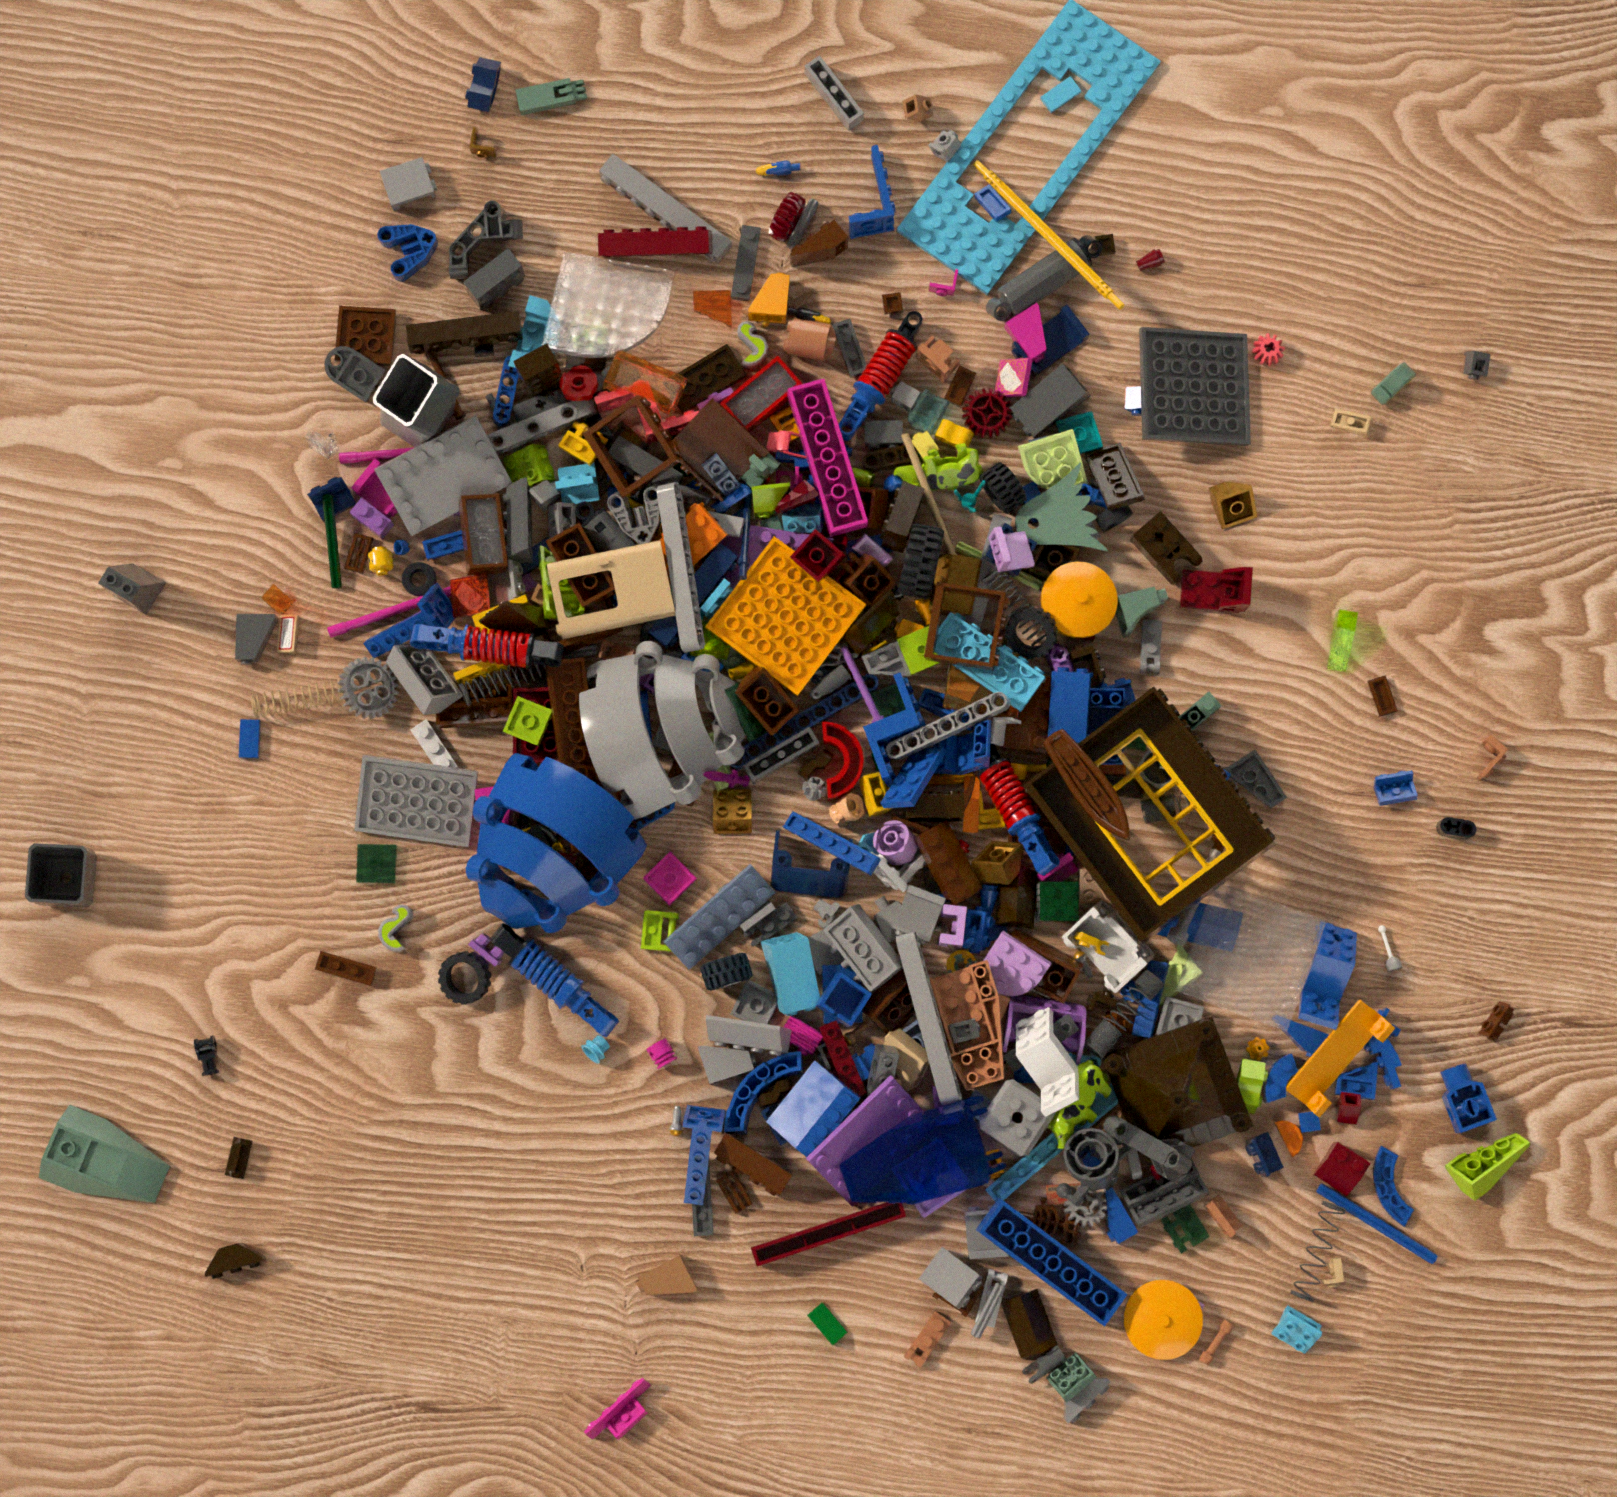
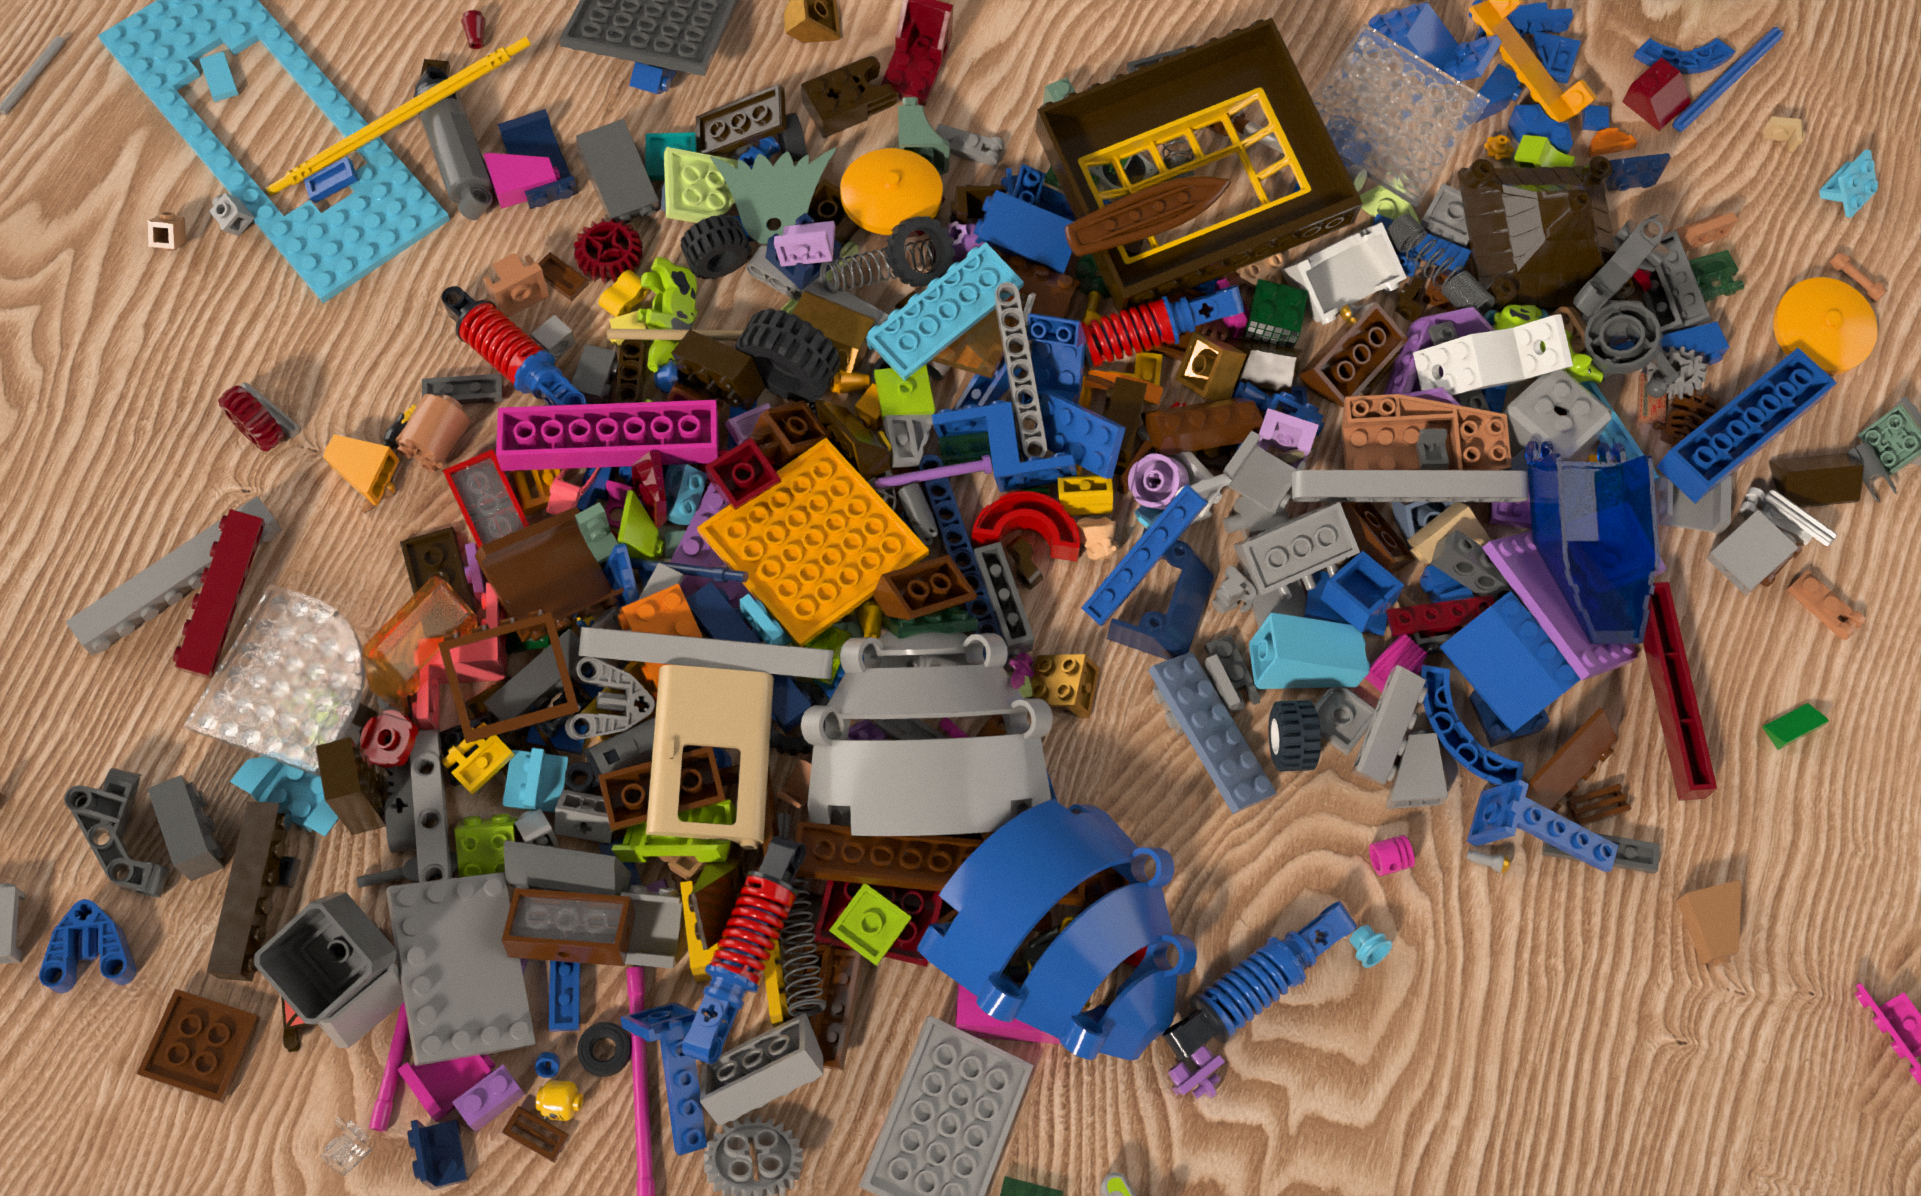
camera: 80 degrees left, 15 degrees down
(332, 543) = (505, 1168): dark green axle -> none
(354, 372) = (250, 1073): dark grey tile -> none
(432, 745) = (865, 1086): white plate -> none
(446, 981) = (1261, 1116): black tyre -> none
(469, 595) = (655, 971): clear red tile -> none
(505, 390) = (362, 851): blue beam -> none
(653, 929) = (1210, 828): lime plate -> none
(669, 878) = (1141, 789): dark pink plate -> none
(714, 304) = (338, 546): clear orange wing -> none
(721, 474) = (585, 583): sand blue slope -> none
(745, 263) = (294, 493): dark grey plate -> none
(758, 344) = (412, 504): light grey animal -> none
(771, 1097) = (1470, 716): dark brown piece -> none
(778, 168) = (178, 419): blue piece -> none
(814, 788) = (1058, 570): light grey gear -> none
(821, 246) = (307, 385): reddish brown slope -> none
(834, 93) = (101, 325): light grey brick -> none
(877, 220) = (300, 316): blue bracket -> none
(892, 303) = (420, 326): reddish brown plate -> none
(927, 412) = (584, 316): clear light blue bracket -> none
(941, 588) = (878, 353): reddish brown window -> none
(944, 290) = (425, 260): dark pink bracket -> none
(957, 957) = (1324, 457): yellow piece -> none
(969, 500) = (718, 298): teal plant -> none
(1013, 377) = (571, 205): tile -> none
(1015, 966) = (1350, 371): lavender plate -> none
(1087, 940) = (1334, 291): yellow plate -> none
(1332, 1206) = (1811, 168): dark grey piece -> none
(1348, 1108) = (1589, 66): dark red brick -> none

